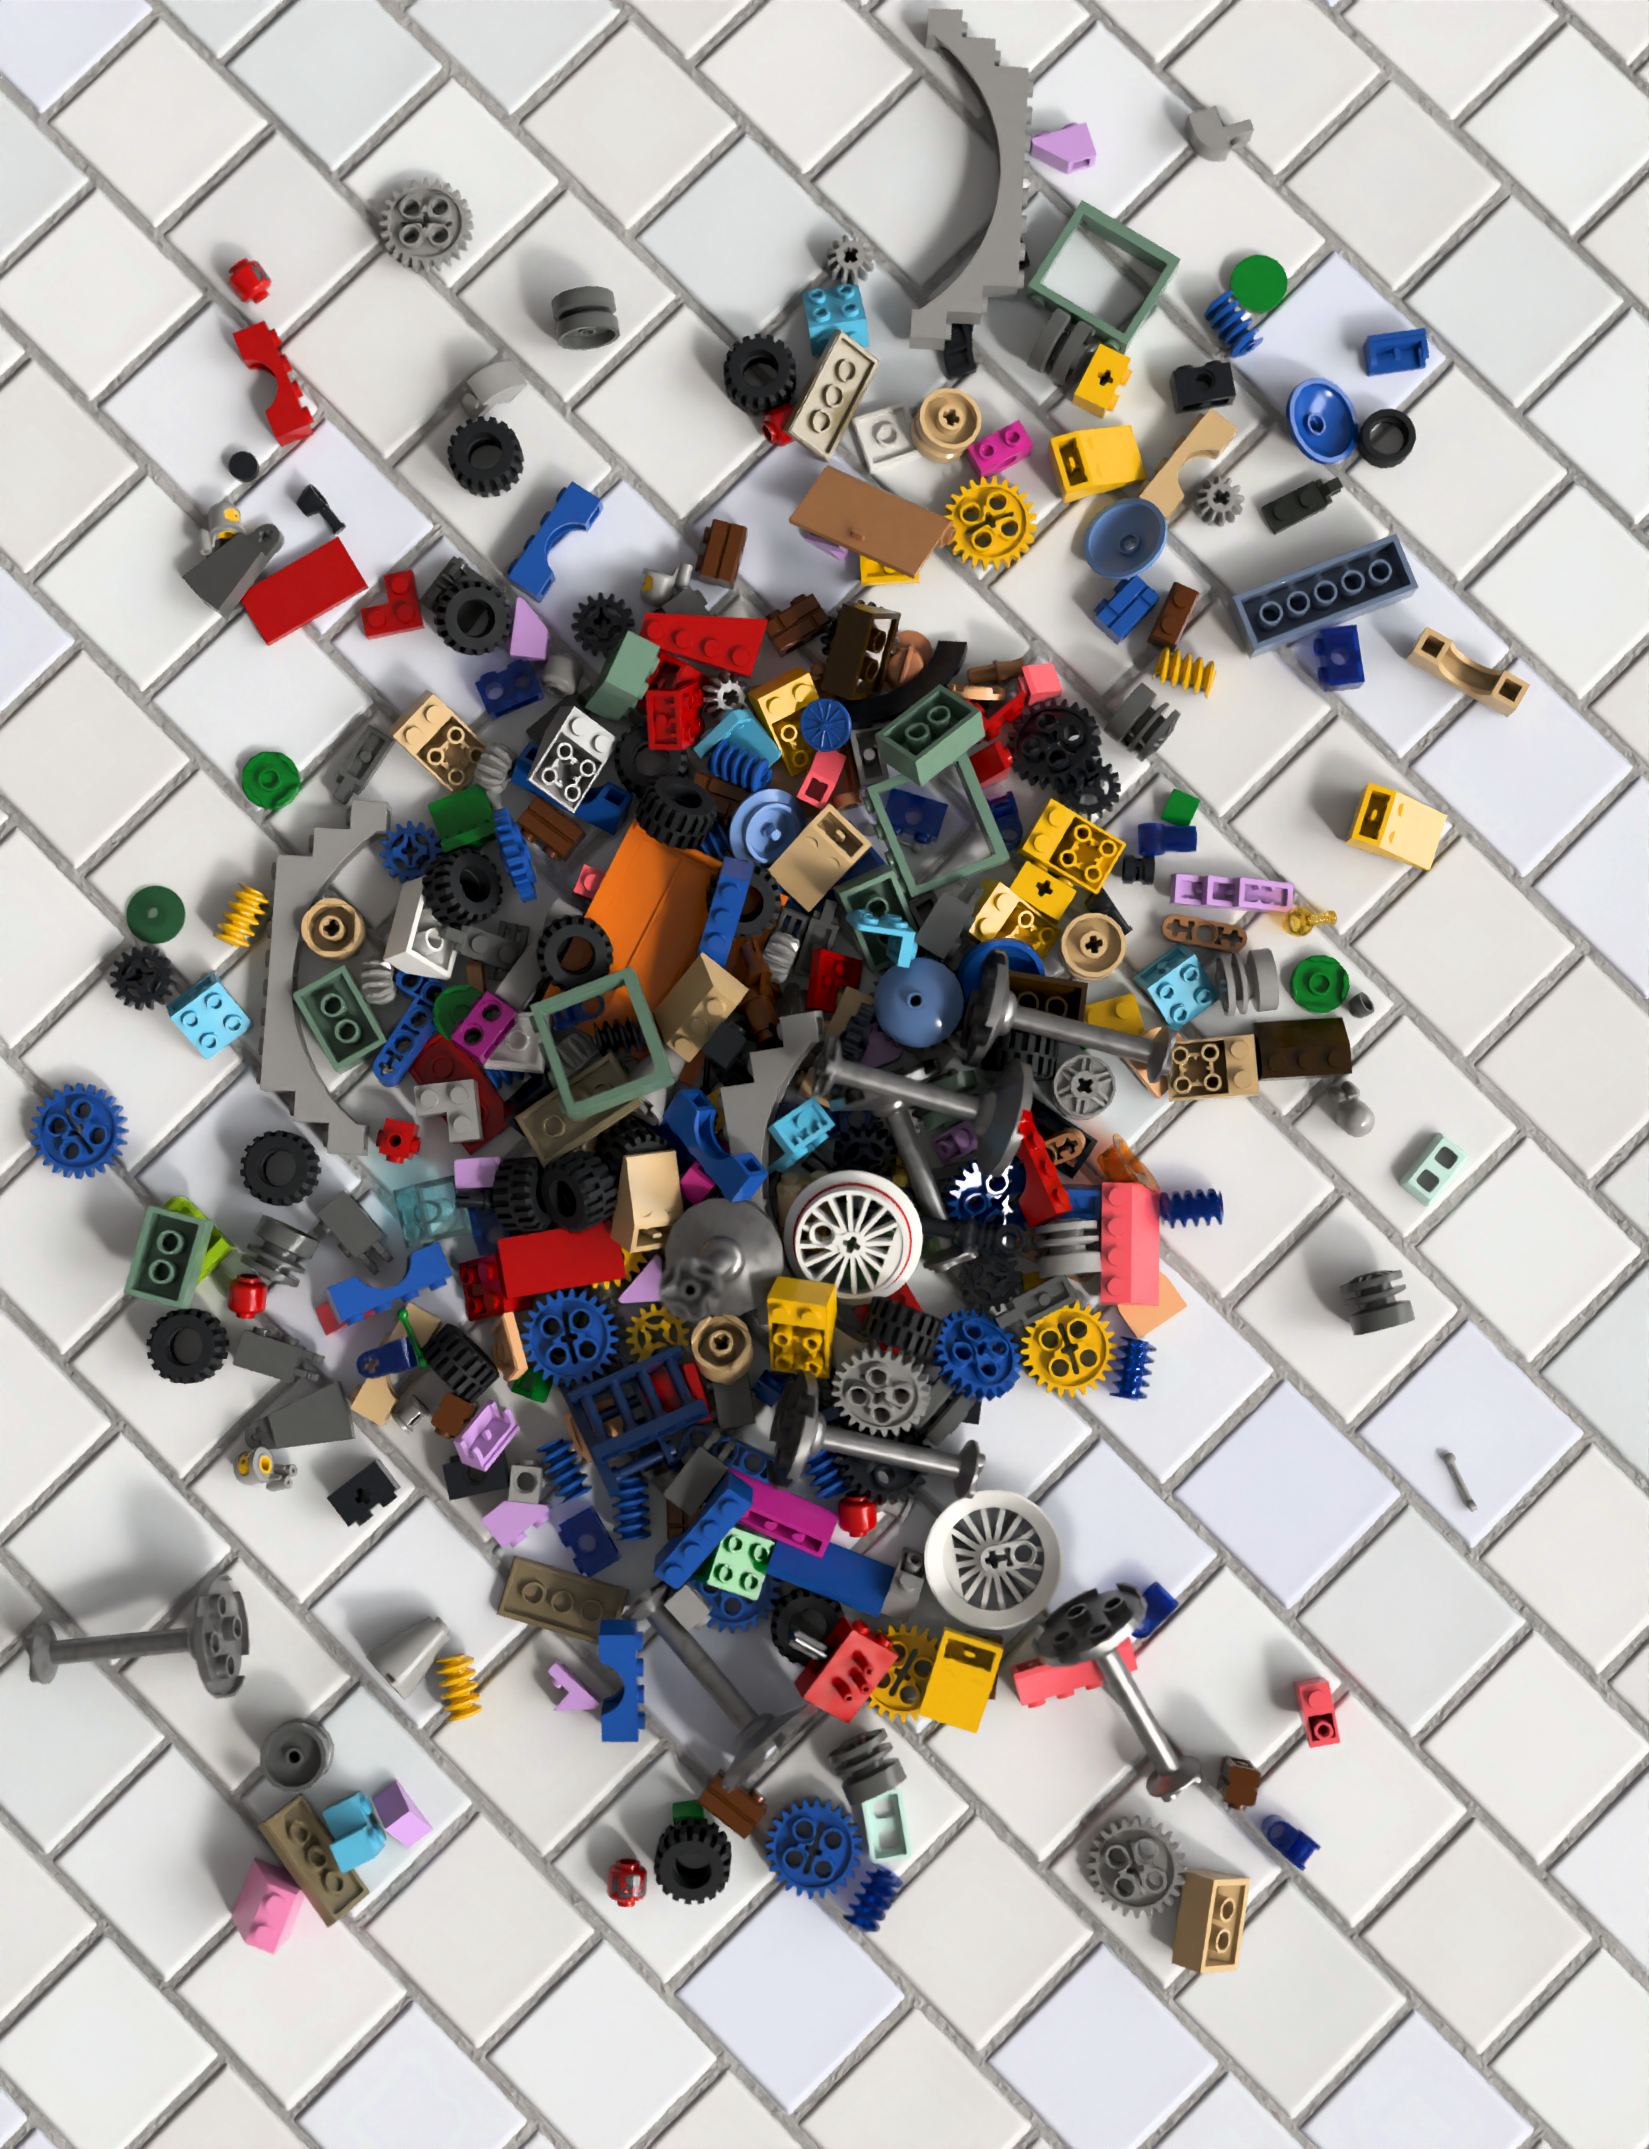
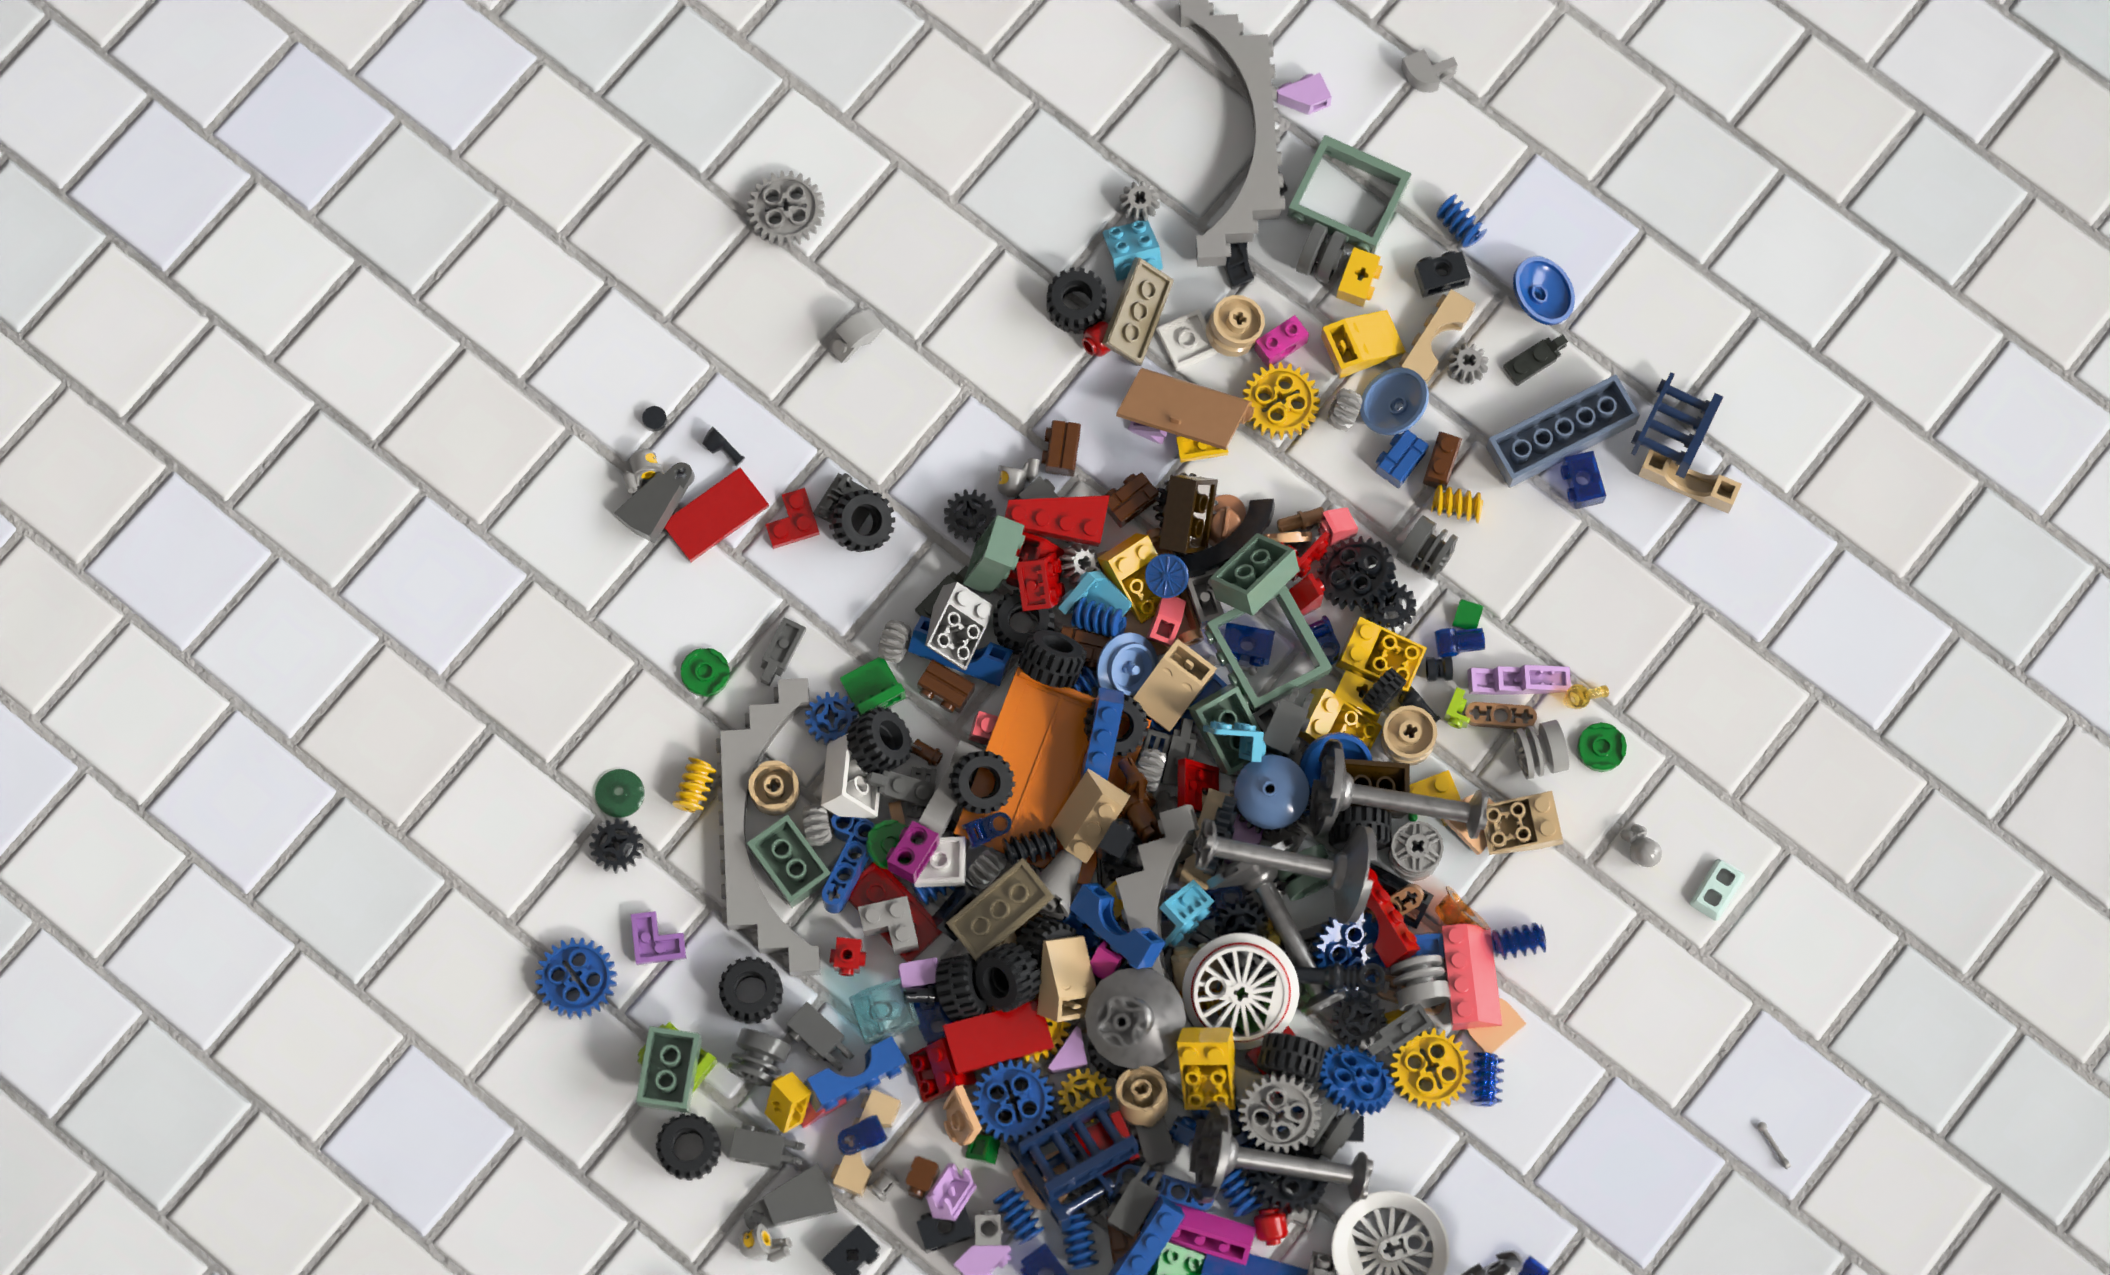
camera: 10 degrees left, 10 degrees down
(169, 1100) = (650, 946): none -> medium lavender plate
(209, 1016) = (675, 870): medium azure bracket -> none
(247, 1295) = (733, 1100): red head -> none
(249, 281) = (643, 268): red head -> none
(286, 414) = (659, 324): red arch -> none
(306, 1308) = (787, 1102): none -> yellow brick
(402, 1314) = (869, 1100): green hinge -> none
(439, 741) = (843, 625): tan slope -> none
(460, 1362) = (922, 1132): black tyre -> none
(478, 435) = (856, 408): black tyre -> none
(512, 697) = (901, 582): clear blue brick -> none
(515, 855) = (921, 709): blue gear -> none
(526, 911) = (929, 754): none -> reddish brown pin
(529, 636) = (910, 531): lavender slope -> none
(561, 675) = (940, 560): light grey head -> none
(574, 511) = (935, 426): blue arch -> none
(585, 318) = (927, 269): dark grey wheel -> none
(617, 1095) = (1033, 890): sand green window -> none
(955, 1143) = (1316, 907): lavender slope -> none
(1064, 542) = (1344, 409): none -> light grey gear
(1068, 893) = (1384, 691): none -> black tyre
(1153, 915) = (1457, 705): none -> lime bracket
(1177, 986) = (1484, 760): medium azure bracket -> none
(1258, 284) = (1477, 186): green tile -> none
(1302, 1049) = (1594, 802): dark brown slope -> none
(1360, 1006) = (1638, 760): dark grey hinge -> none
(1377, 1302) = (1683, 1000): dark grey wheel -> none
(1392, 417) = (1603, 282): black tyre -> none
(1395, 827) = (1648, 611): yellow slope -> none
(1396, 352) = (1597, 229): blue hinge -> none
(1487, 606) = (1690, 441): none -> dark blue fence

